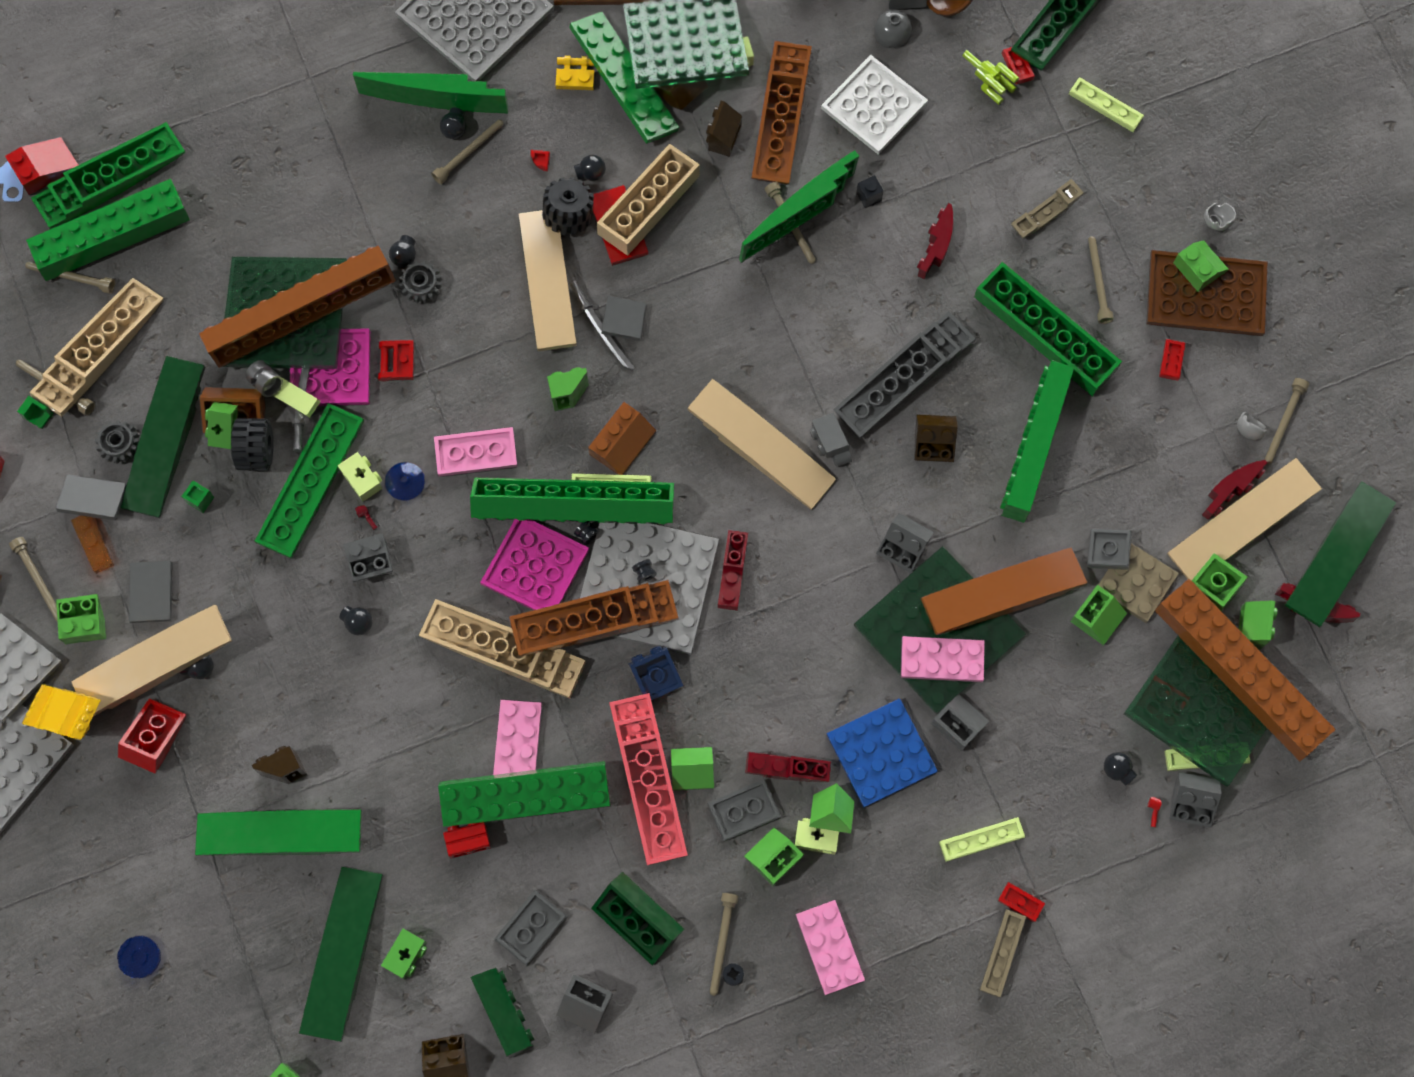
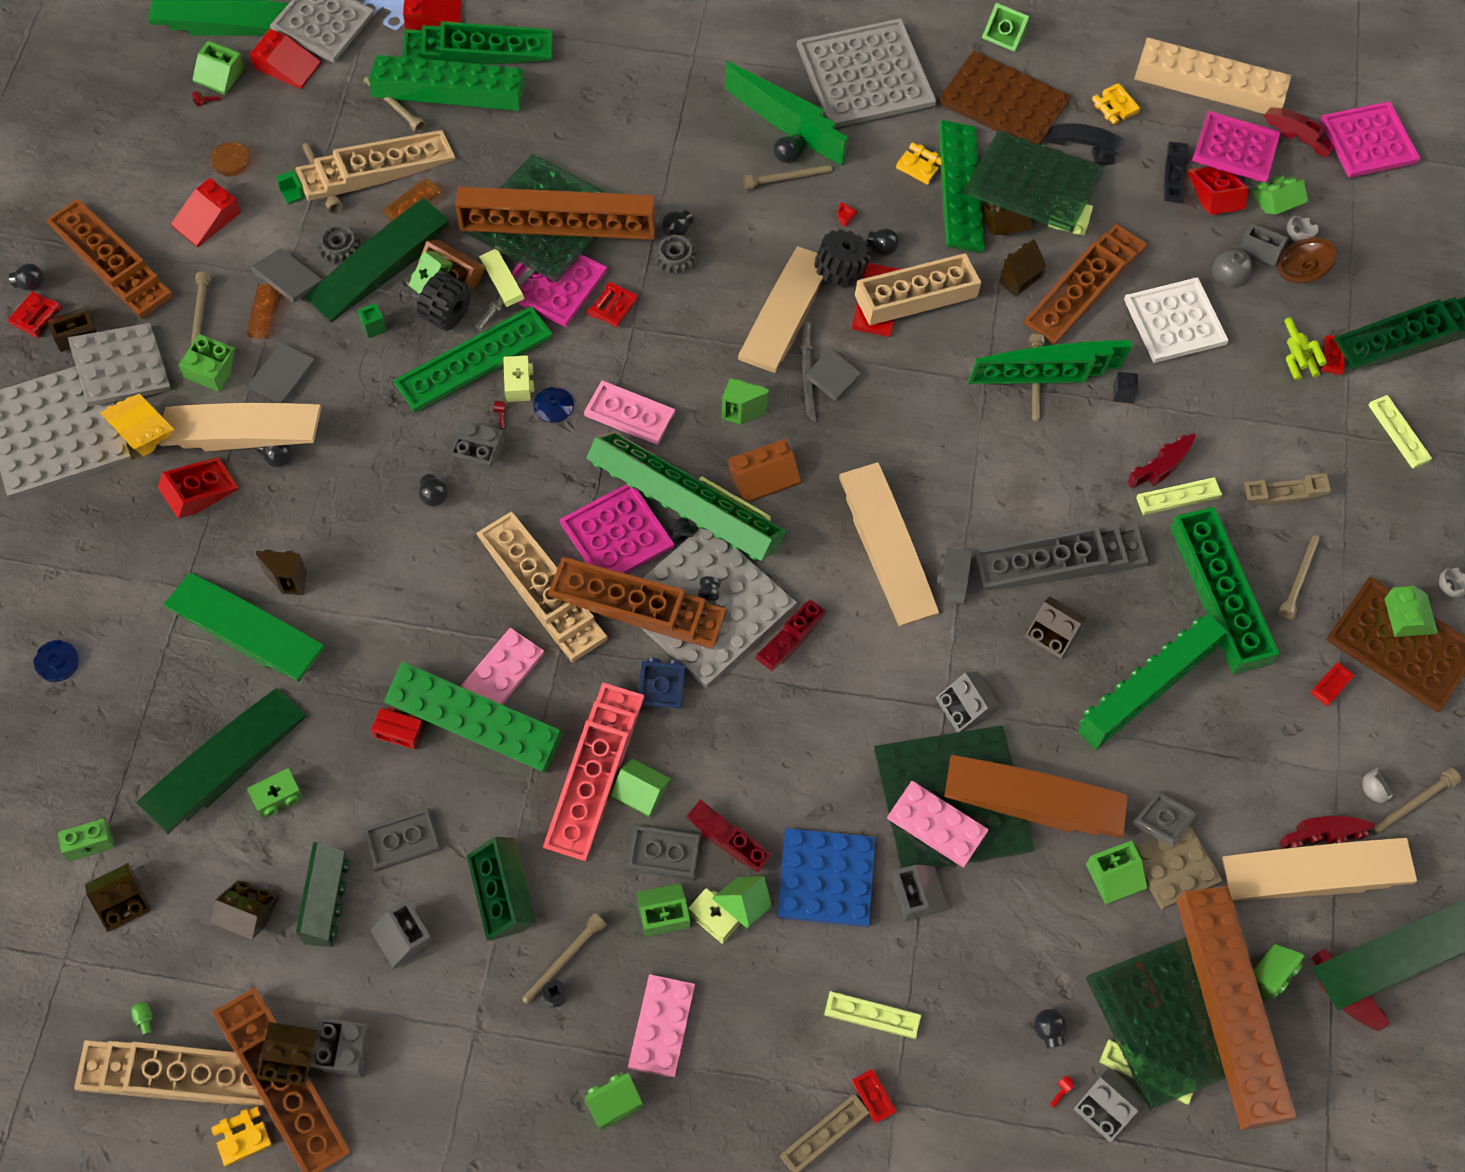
camera: 30 degrees right, 10 degrees down
(153, 362) = (422, 189): none -> clear orange plate
(264, 378) = (490, 255): flat silver wheel -> none
(834, 1028) = (613, 1101): none -> bright green slope
(965, 264) = (1179, 496): none -> yellowish green tile
(1219, 581) = (1259, 910): bright green slope -> none

